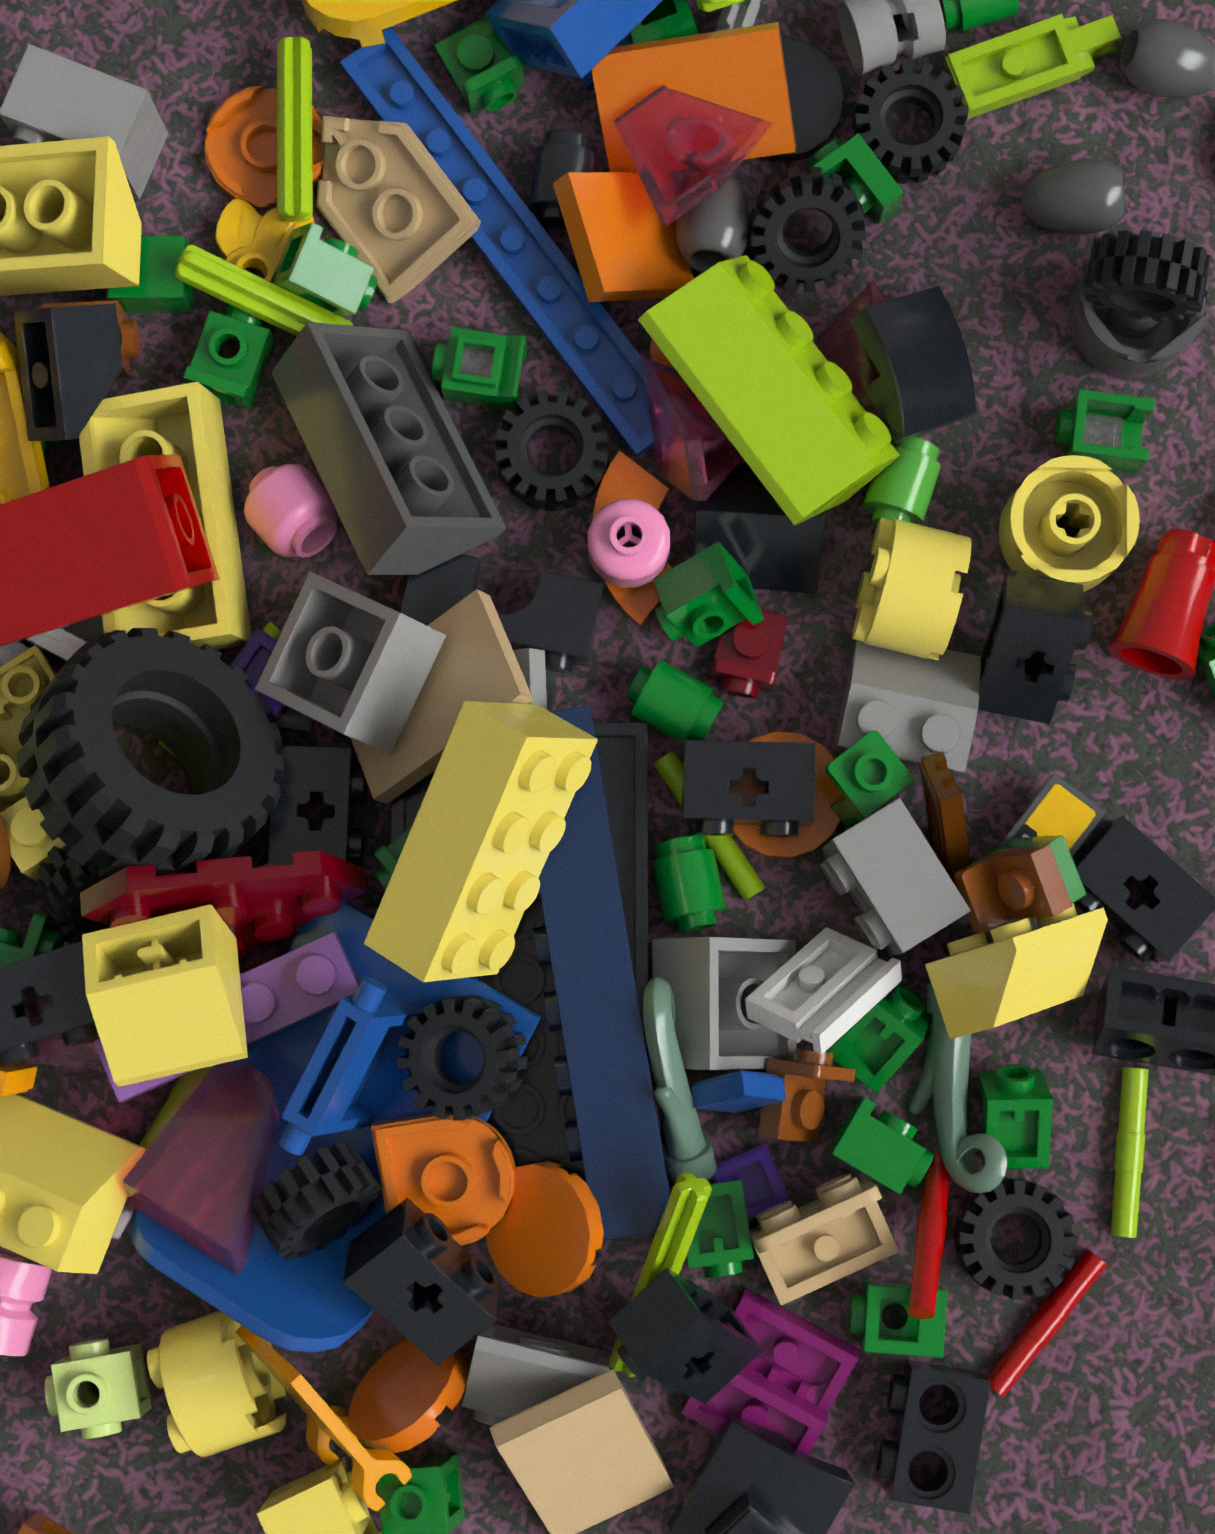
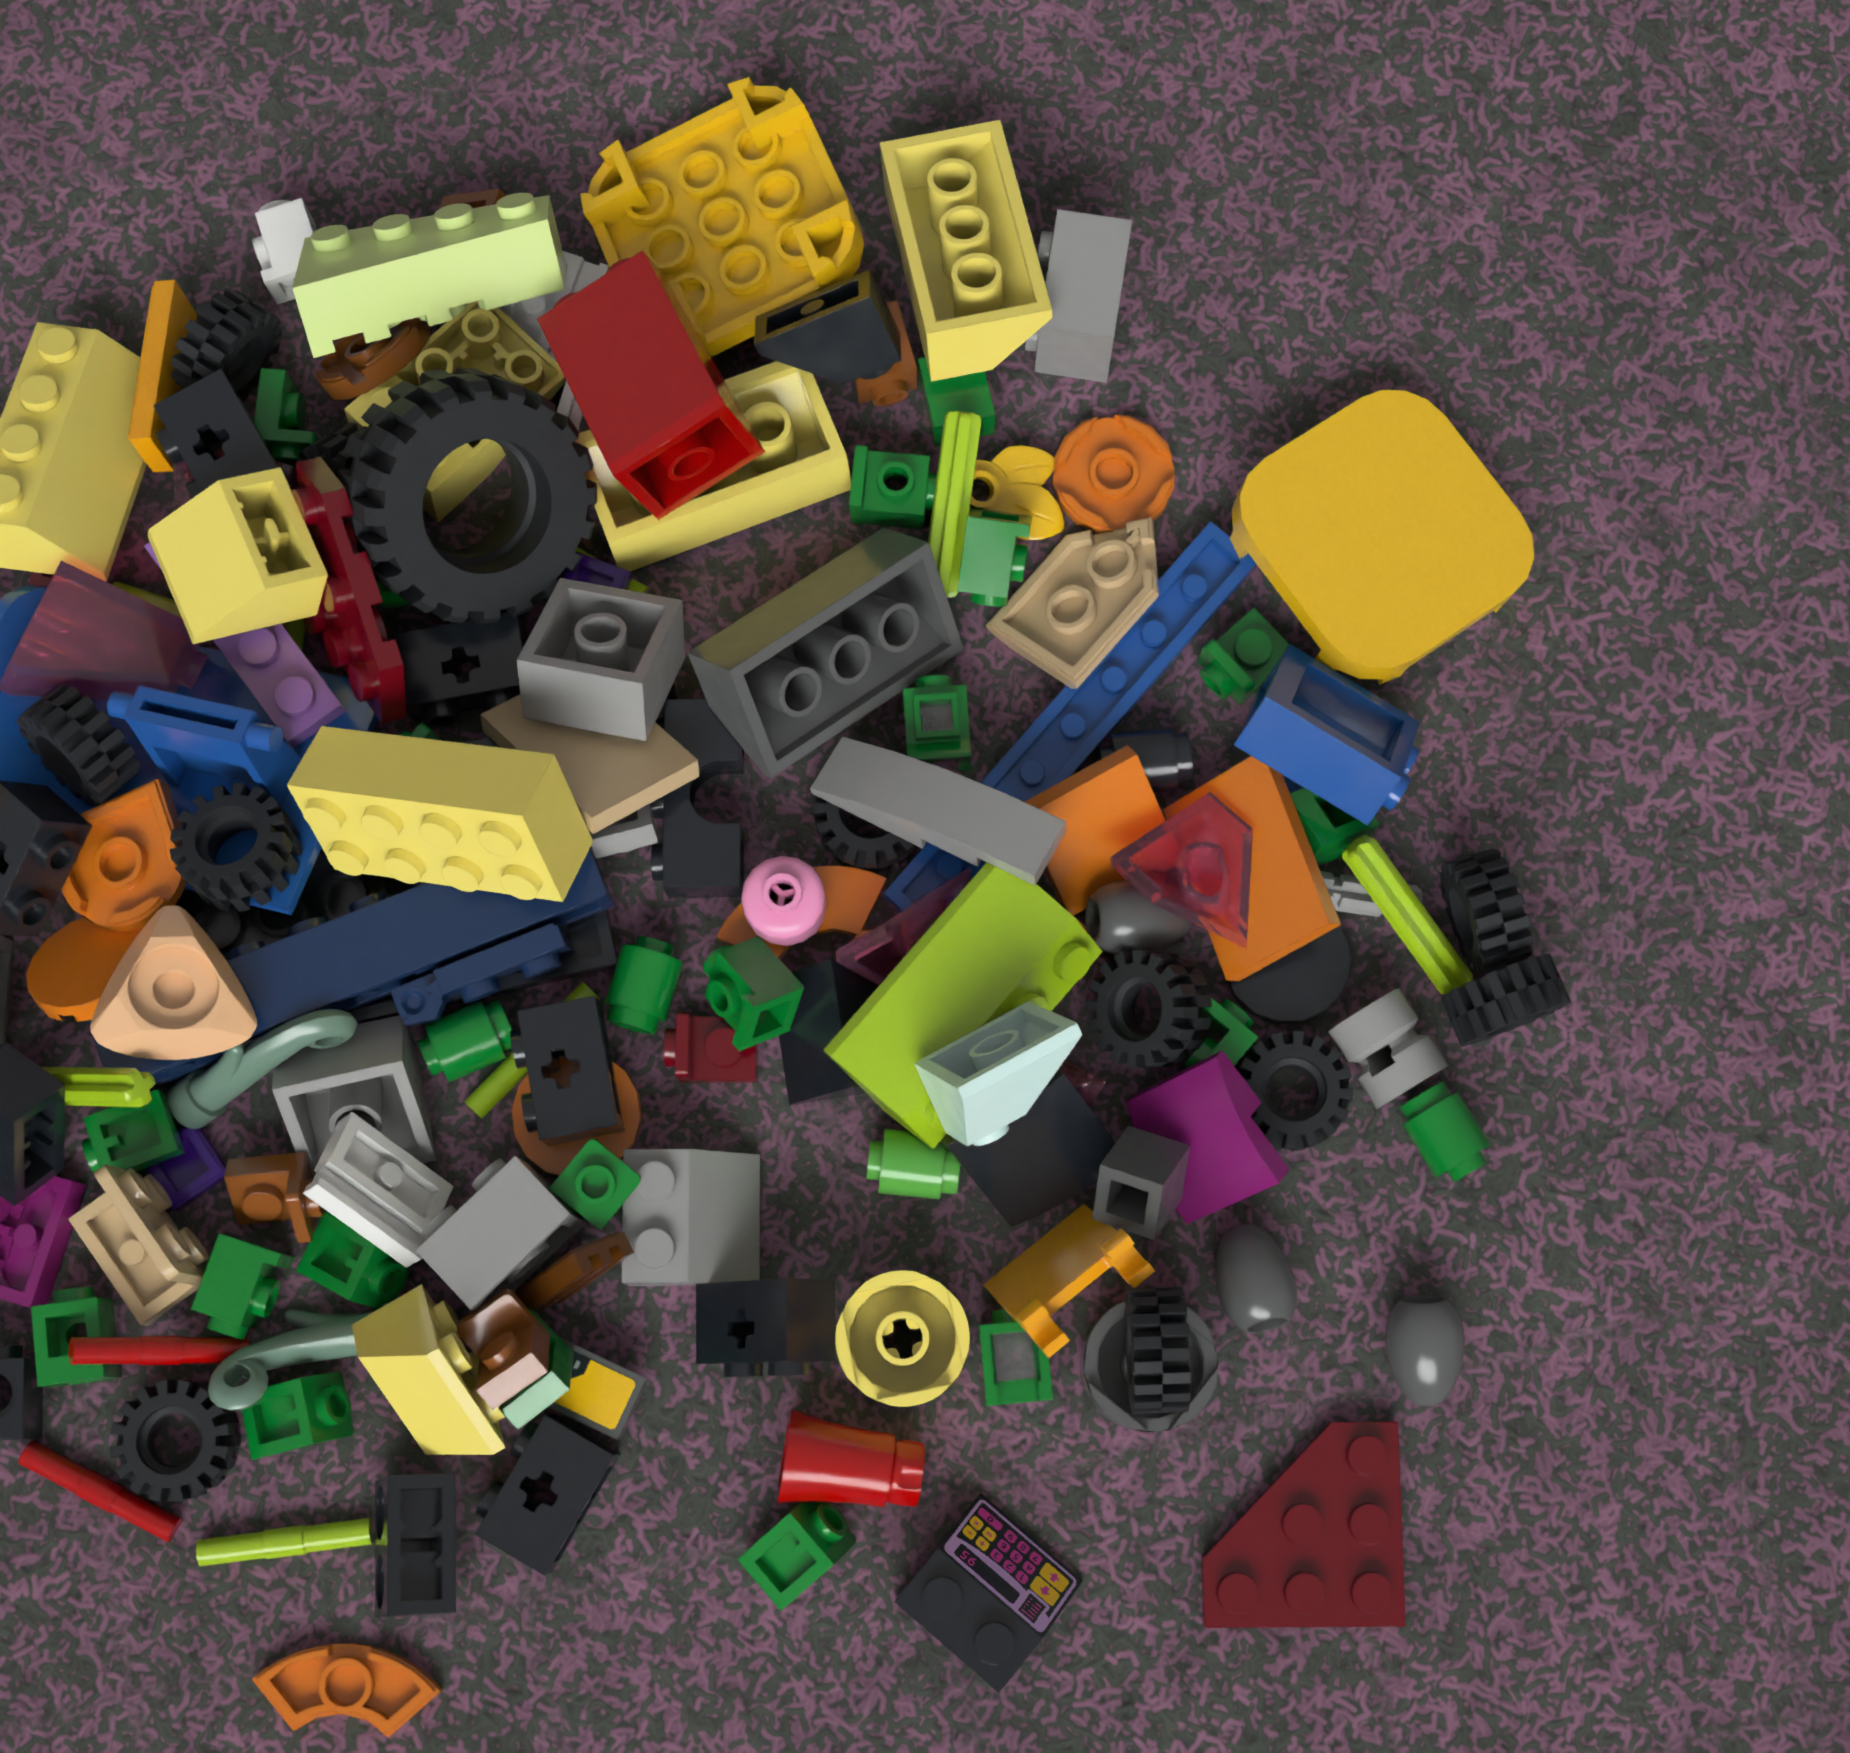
camera: 80 degrees right, 5 degrees down
(291, 511) = (751, 574): bright pink head -> none
(294, 129) = (1130, 493): lime axle -> none
(578, 368) = (939, 808): none -> light grey slope
(600, 1143) = (173, 995): none -> light nougat hat
(634, 852) = (478, 974): none -> dark blue hinge
(738, 1091) = (263, 1127): blue tile -> none
(855, 358) = (996, 1071): none -> light aqua slope
(912, 589) = (800, 1189): light yellow brick -> none
(942, 204) = (1212, 1113): none -> magenta slope
(975, 267) = (1141, 1182): none -> dark grey brick
(1028, 61) = (1386, 1199): lime hinge -> none
(1037, 362) = (1061, 1268): none -> light orange flag

